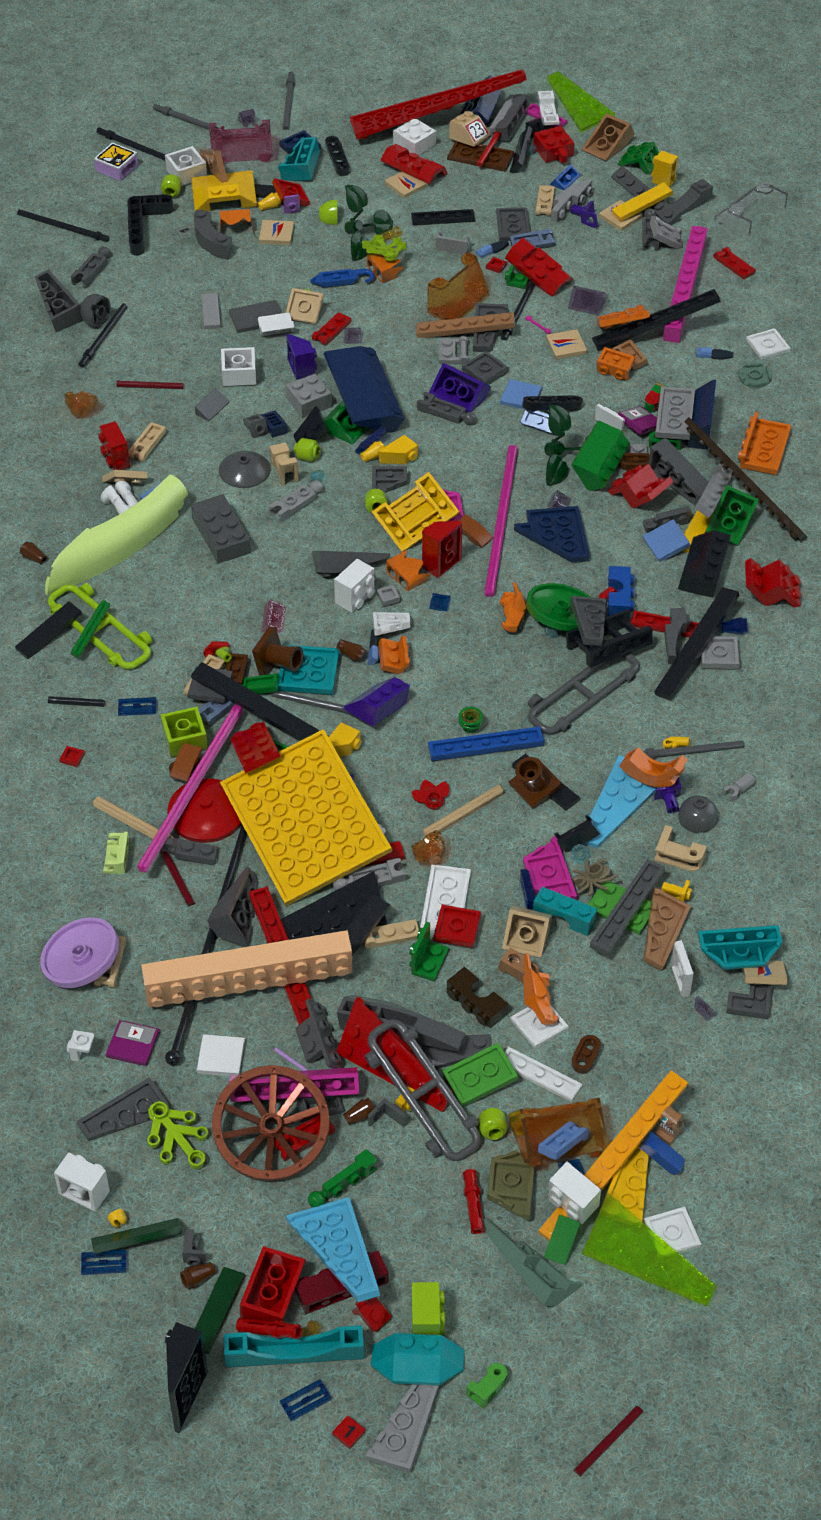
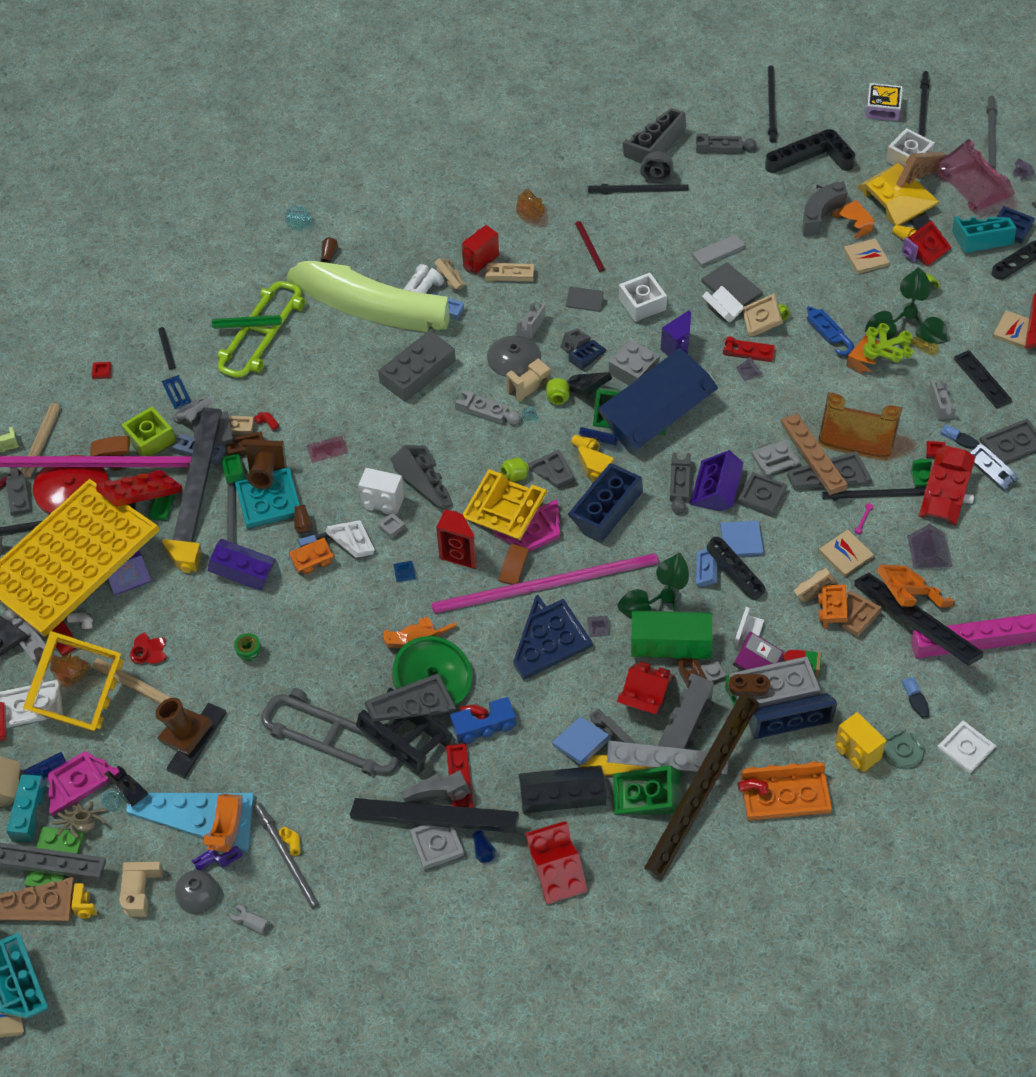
camera: 70 degrees right, 5 degrees up
(48, 630) = (238, 296): black tile -> none
(171, 185) = (875, 153): lime head -> none
(173, 688) = (190, 410): none -> light grey plate
(216, 442) = (531, 322): none -> light grey hinge
(224, 653) = (258, 425): lime arm -> none
(408, 569) = (425, 525): orange piece -> none
(441, 852) = (42, 669): none -> yellow window
(447, 452) = (606, 501): none -> dark blue slope
(485, 743) = (226, 672): blue plate -> none
(592, 371) = (810, 588): none -> tan wing
(673, 422) = (749, 684): none -> reddish brown plate
(746, 387) = (859, 742): none -> yellow brick
(752, 457) = (754, 783): none -> red arm

